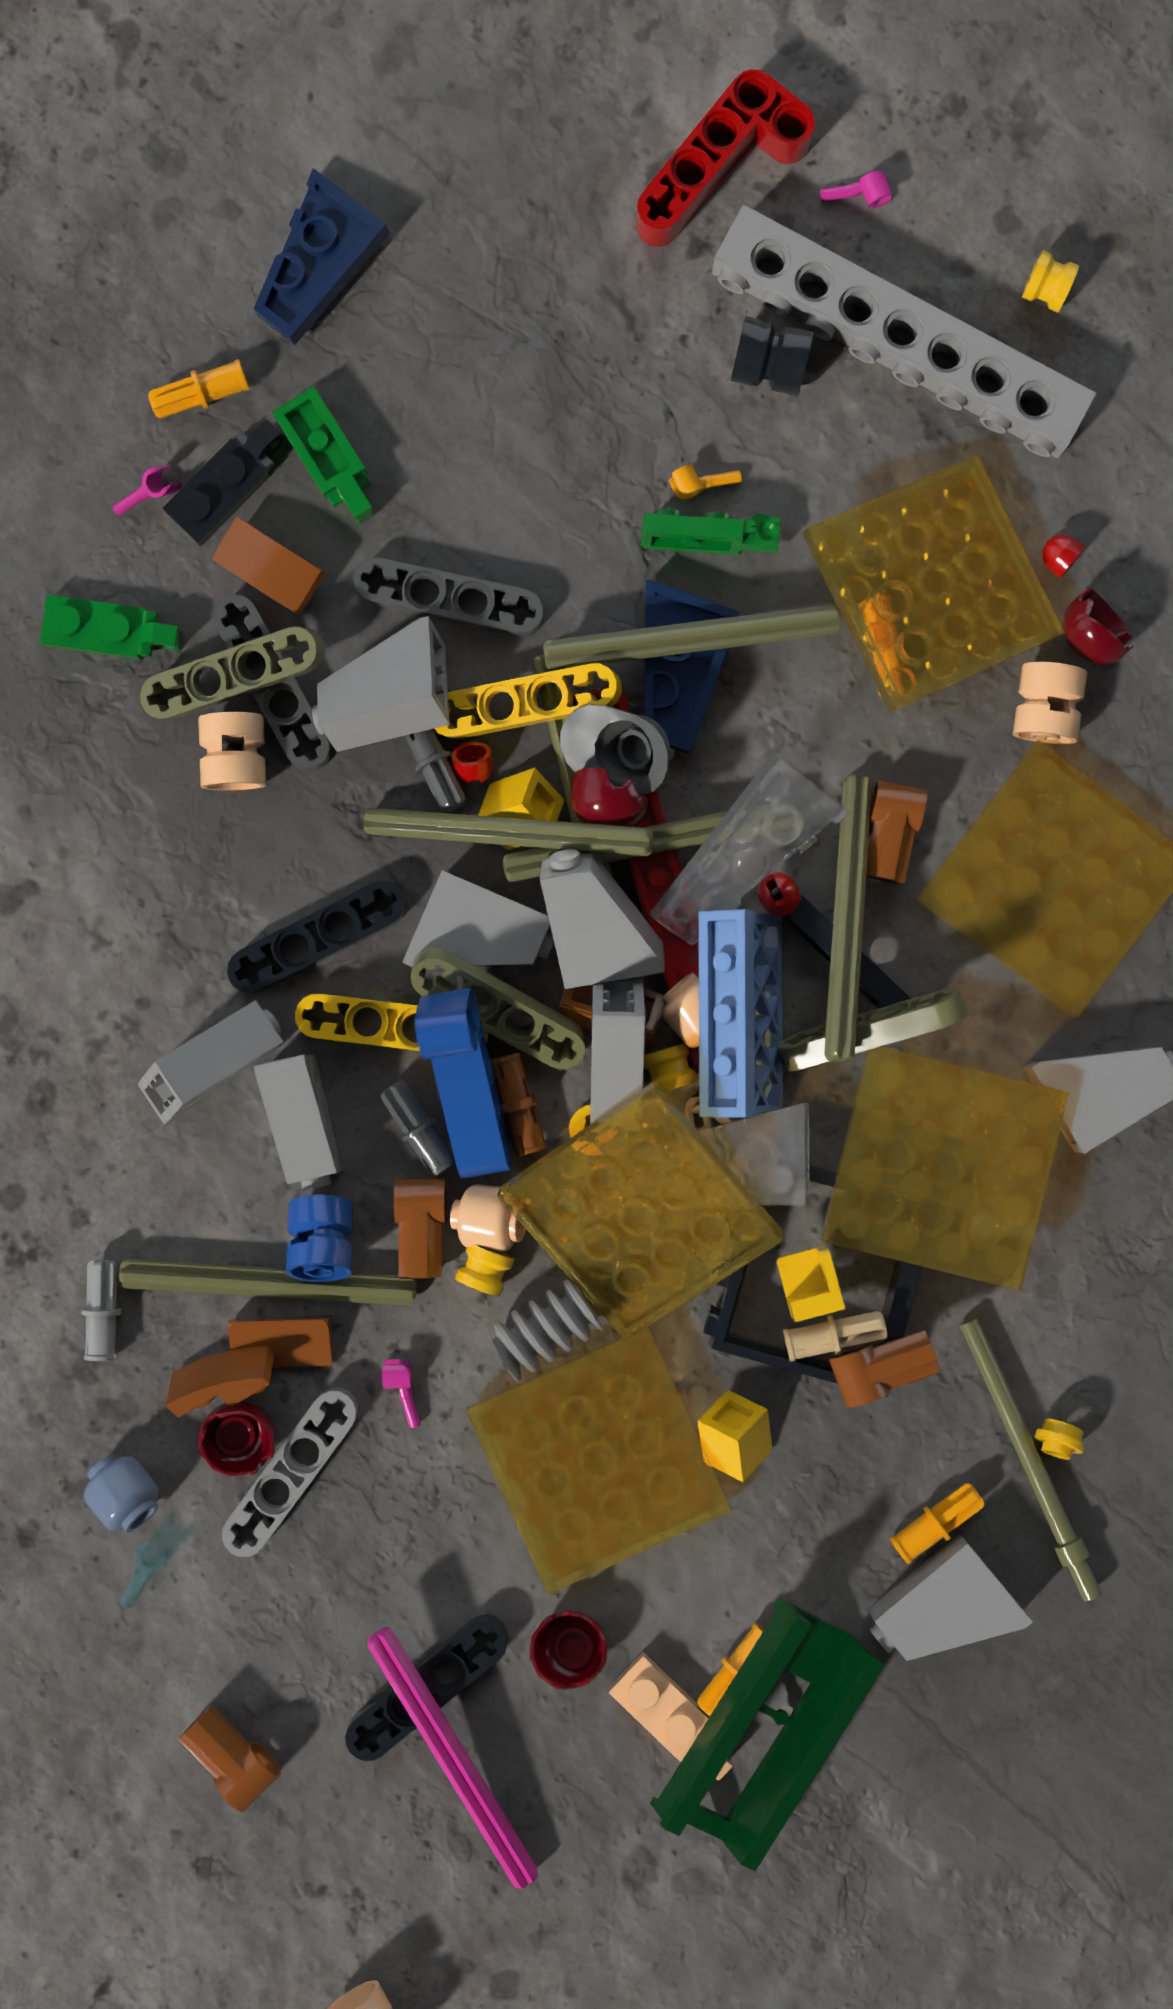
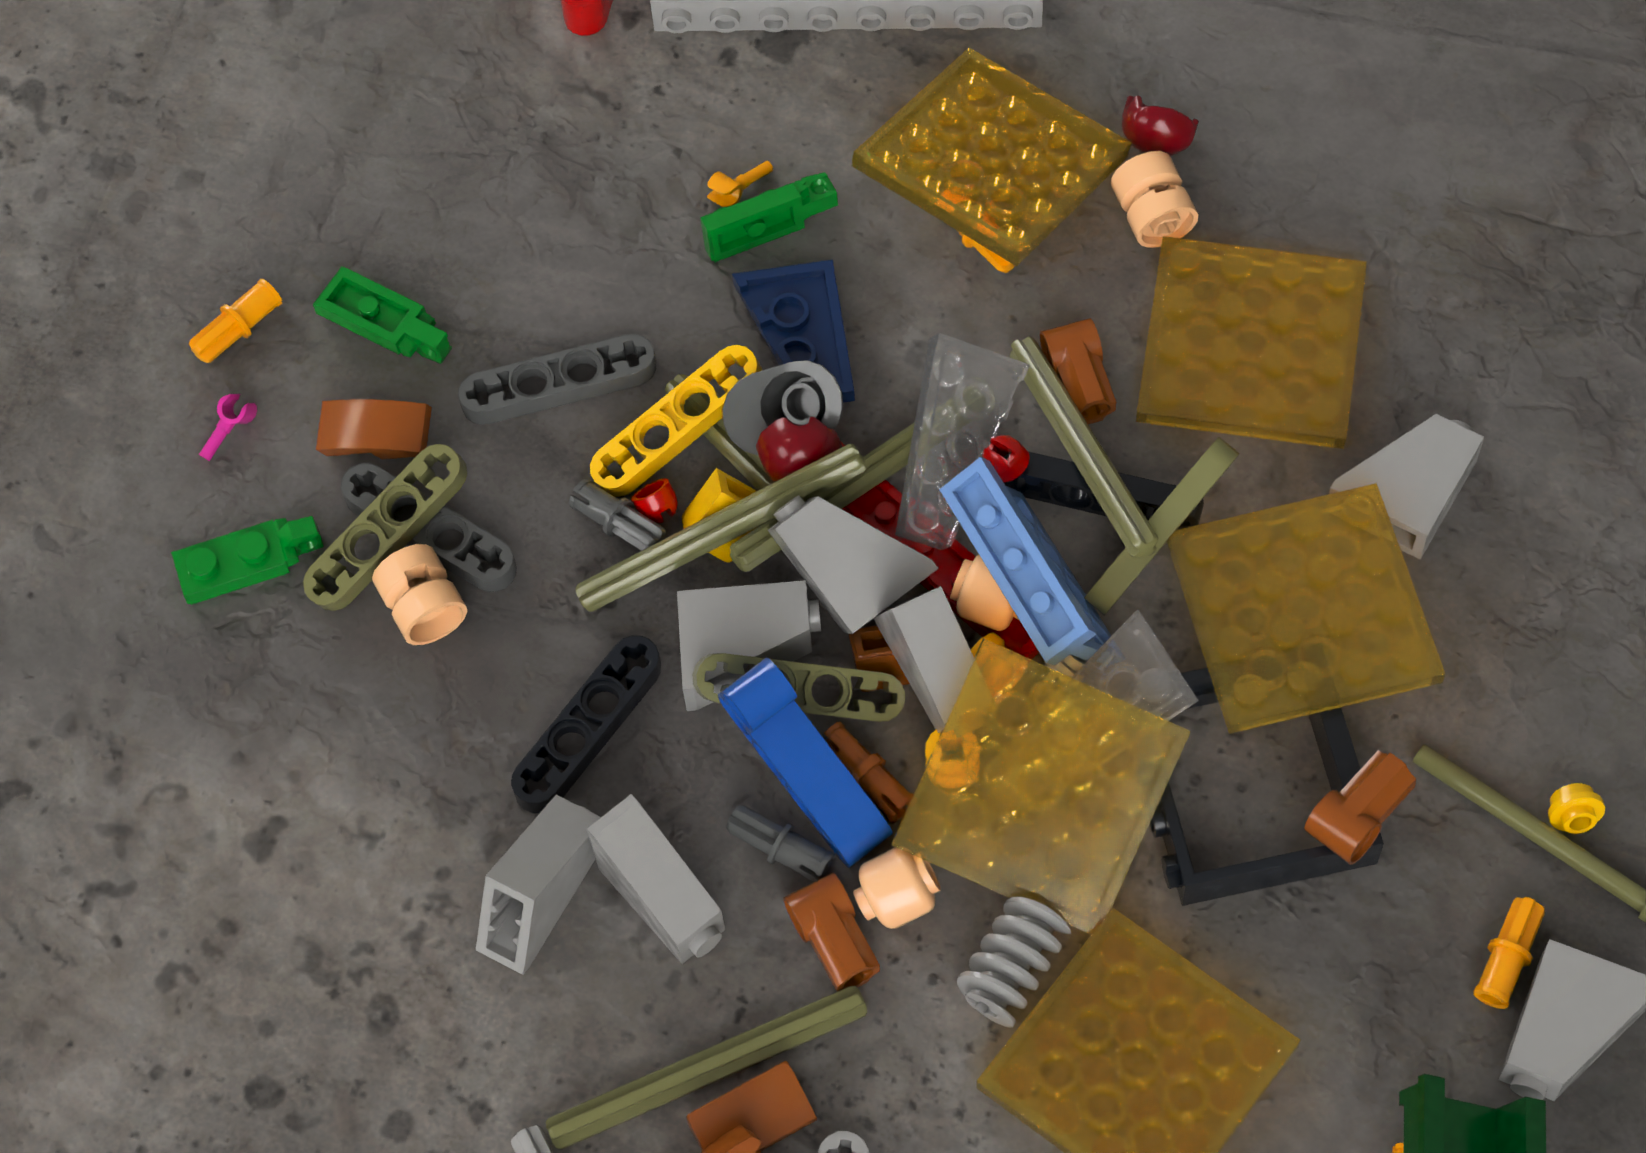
camera: 25 degrees left, 25 degrees down
(224, 483) = (297, 386): black hinge -> none
(319, 1244) = (737, 984): blue wheel -> none
(322, 254) = (295, 166): dark blue wing -> none
(386, 690) = (540, 473): light grey slope -> none
(391, 1014) = (697, 755): yellow beam -> none
(398, 1374) = (891, 1089): dark pink hand -> none
(484, 1270) = (919, 937): yellow wheel -> none
(693, 637) = (803, 291): olive axle -> none
(735, 1435) = (1261, 967): yellow panel -> none
(772, 356) = (744, 56): black wheel -> none
(810, 1283) = (1245, 769): yellow panel -> none
(835, 1335) = (1293, 807): tan axle -> none
(1061, 553) = (1091, 88): red hinge -> none

